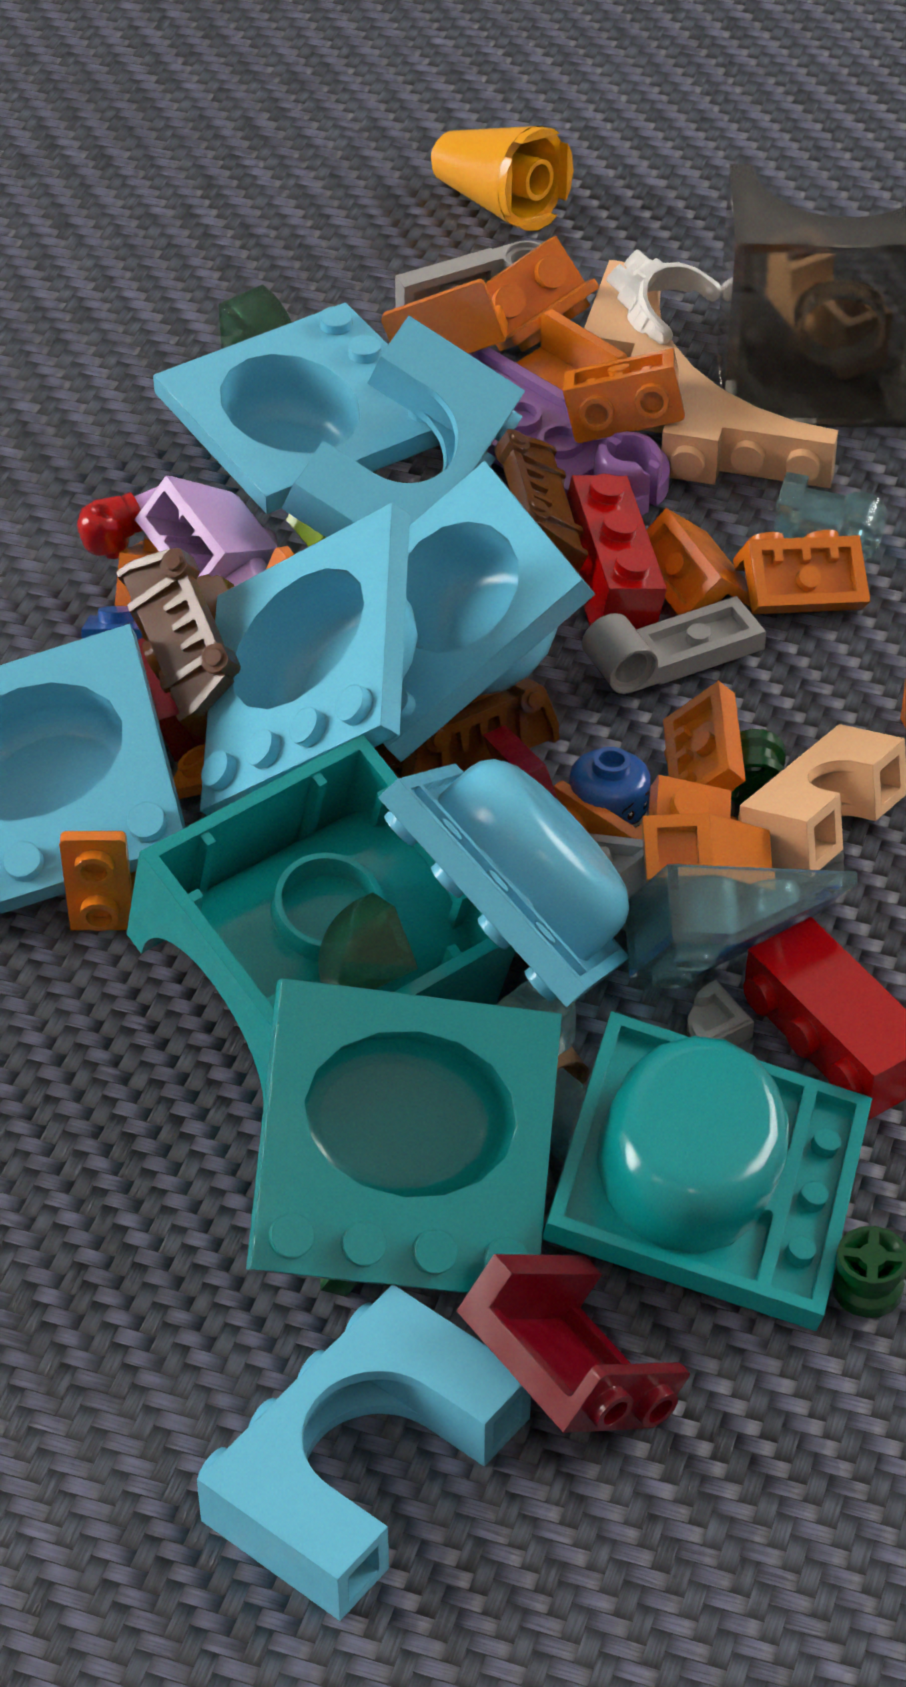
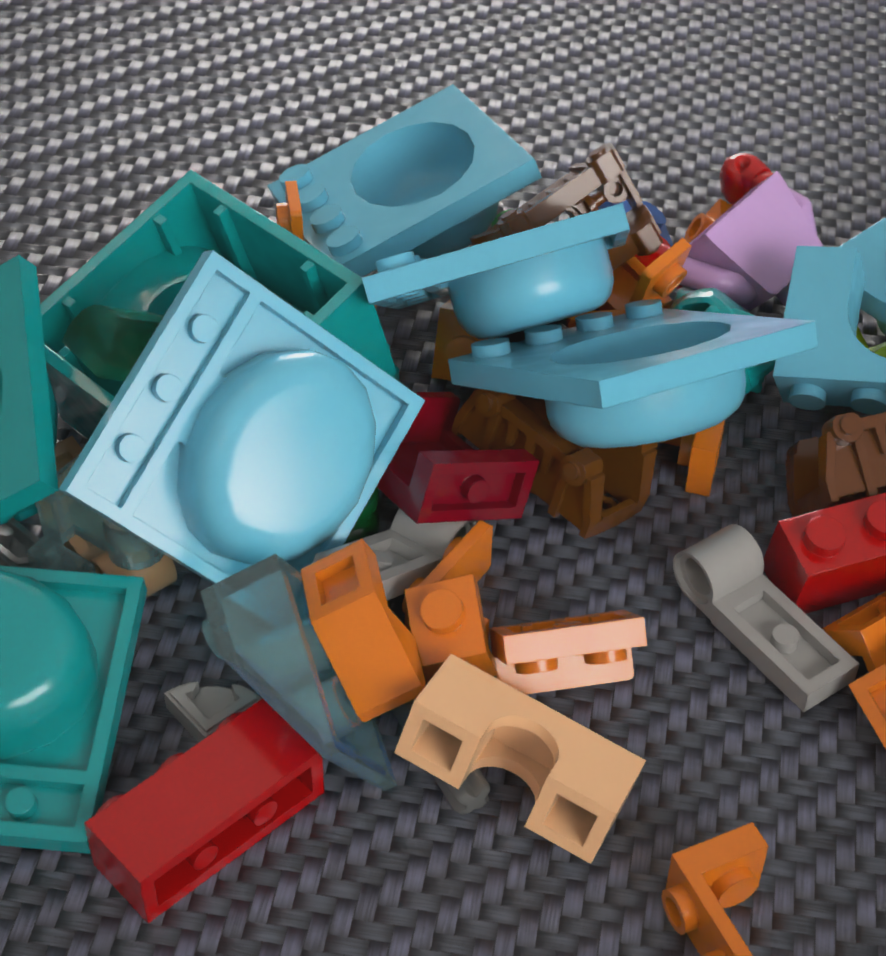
camera: 80 degrees right, 0 degrees up
(613, 781) = (506, 570): blue head -> none
(762, 758) = (586, 699): dark green wheel -> none

